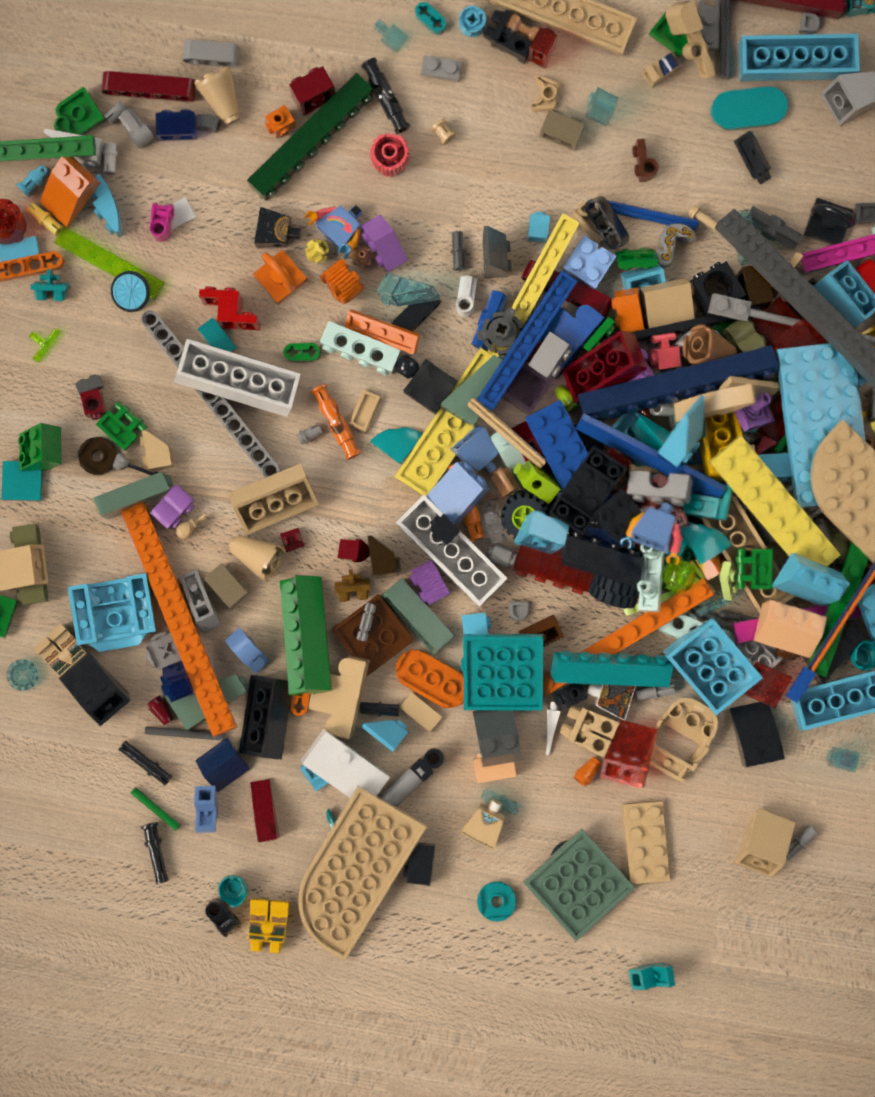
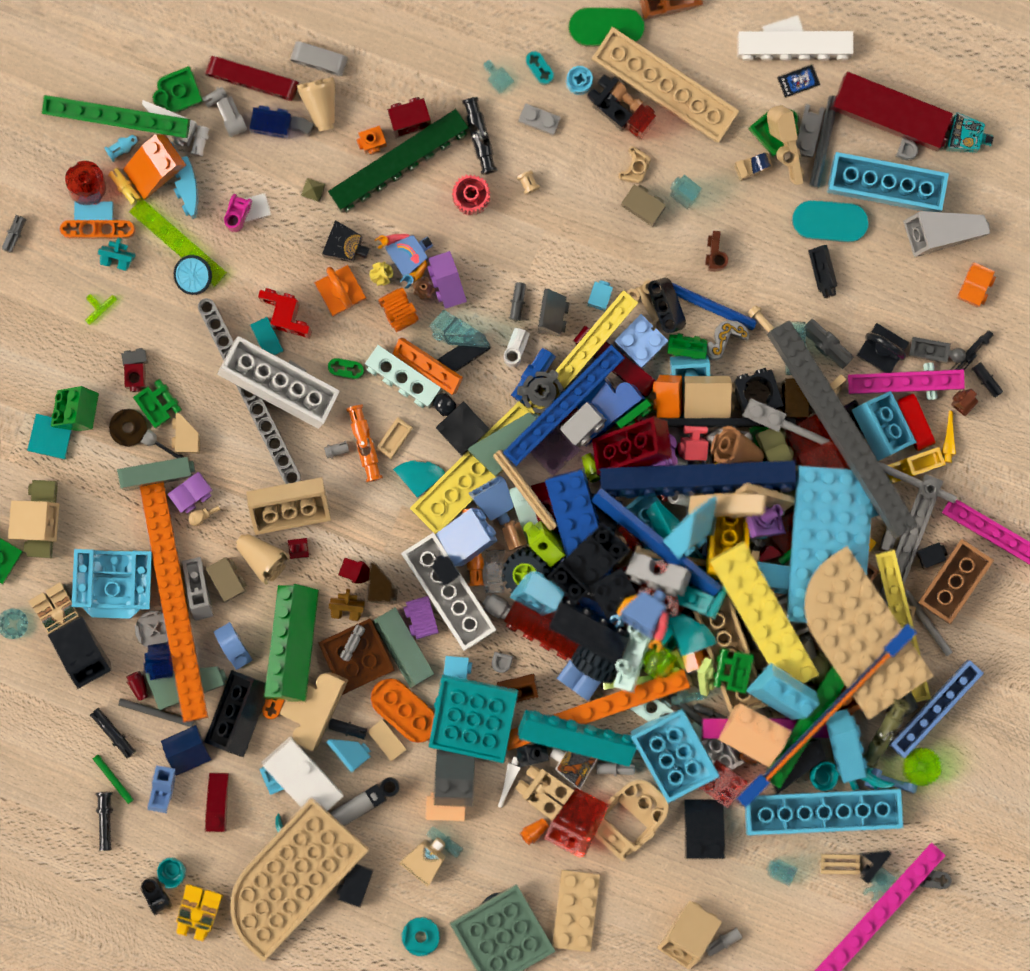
camera: 10 degrees right, 0 degrees up
(232, 183) = (313, 189): none -> olive slope
(599, 612) = (578, 681): none -> medium blue brick

